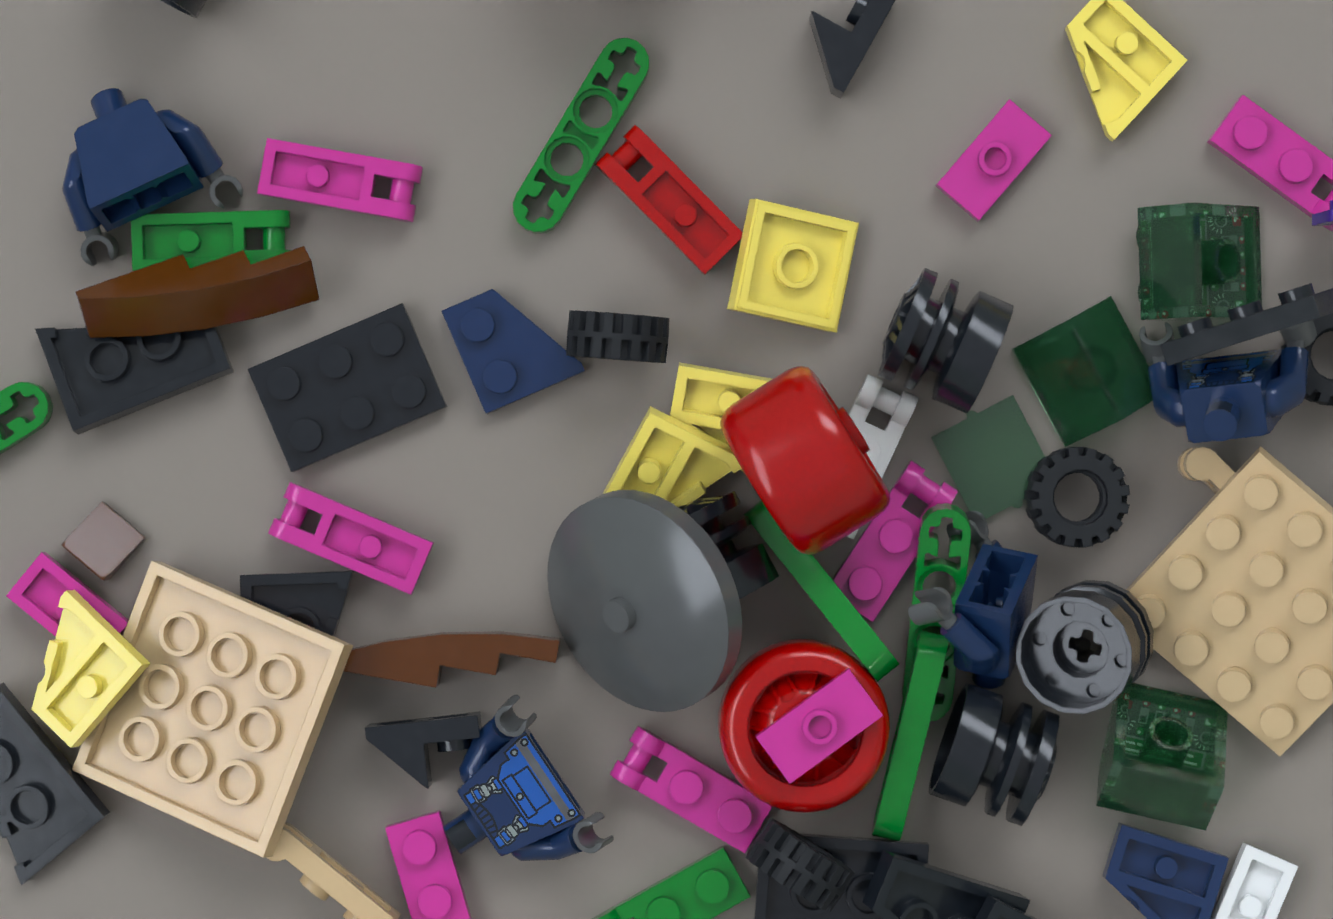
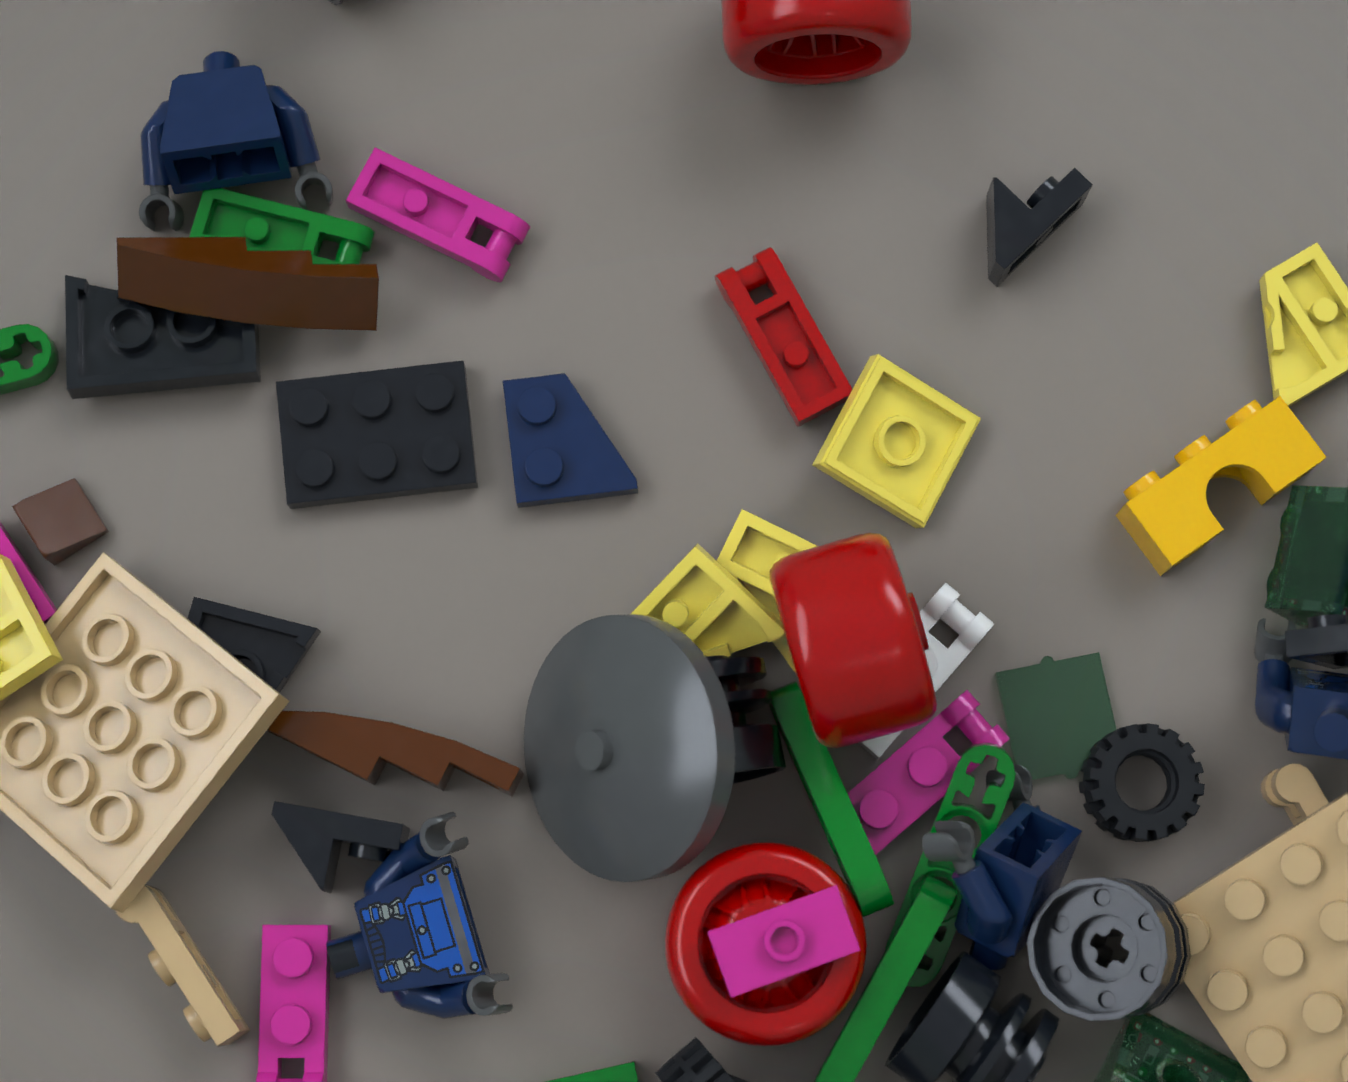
camera: 15 degrees right, 10 degrees down
(353, 539) = (331, 596): dark pink plate -> none
(576, 133) = (714, 249): green beam -> none
(617, 336) = (684, 457): black tyre -> none
(692, 790) = (619, 986): dark pink plate -> none
(945, 340) = (1042, 563): black wheel -> none
(993, 160) = (1145, 395): dark pink plate -> none
(1086, 371) = (1187, 649): clear green slope -> none
(1103, 181) = (1262, 450): none -> yellow arch

